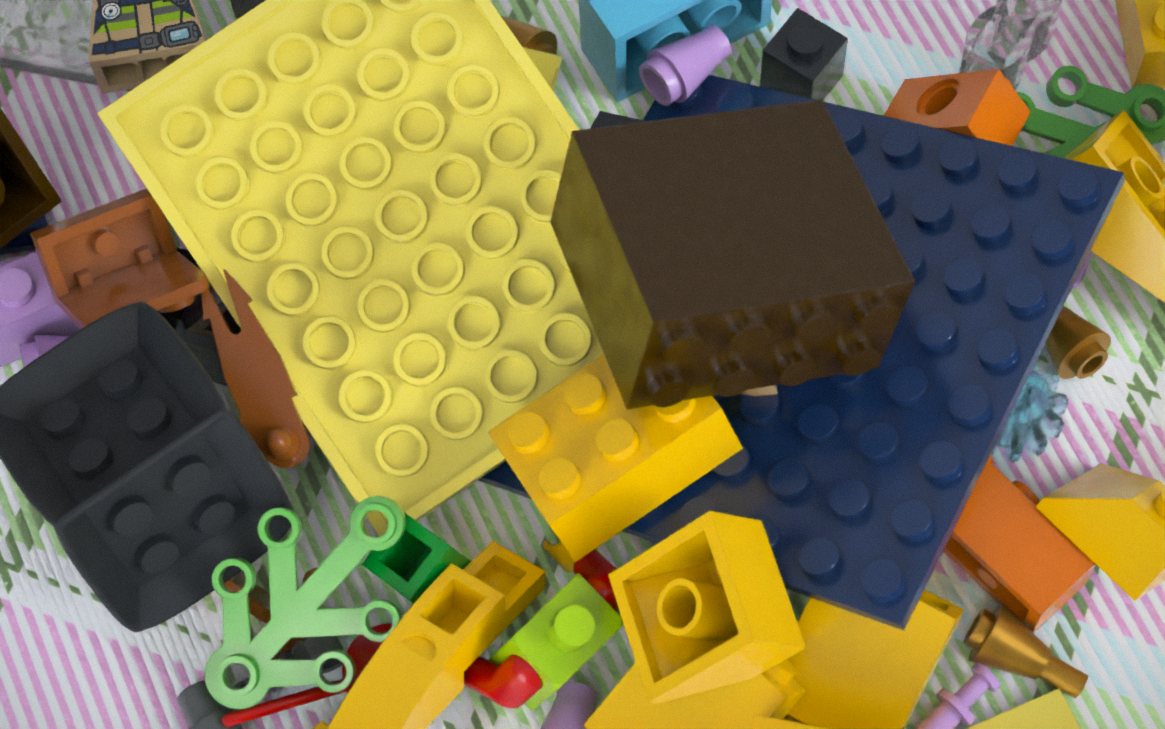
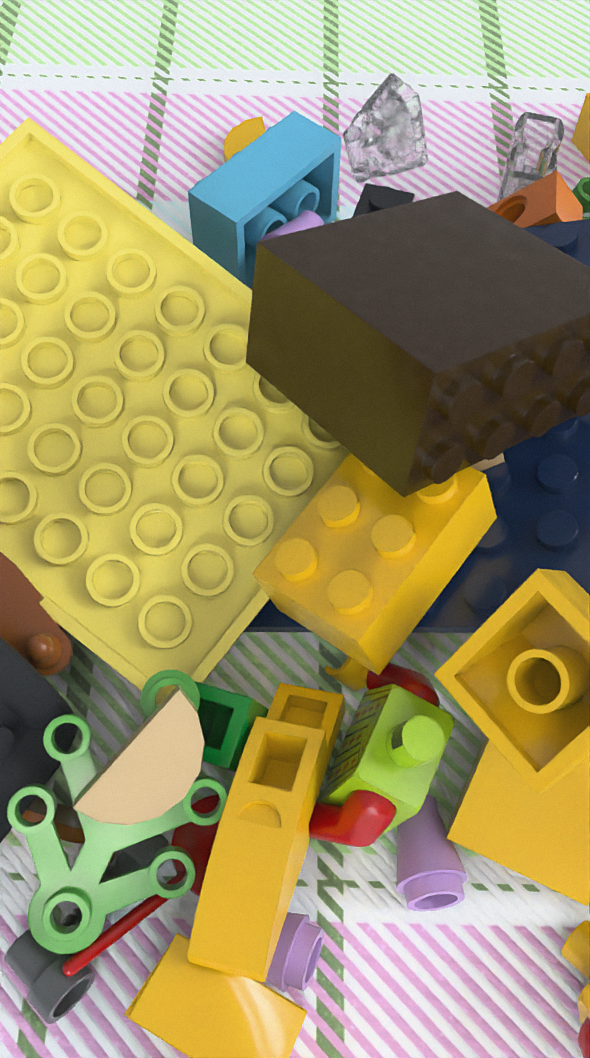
camera: 25 degrees left, 5 degrees down
(340, 576) = (150, 768): none -> tan tile

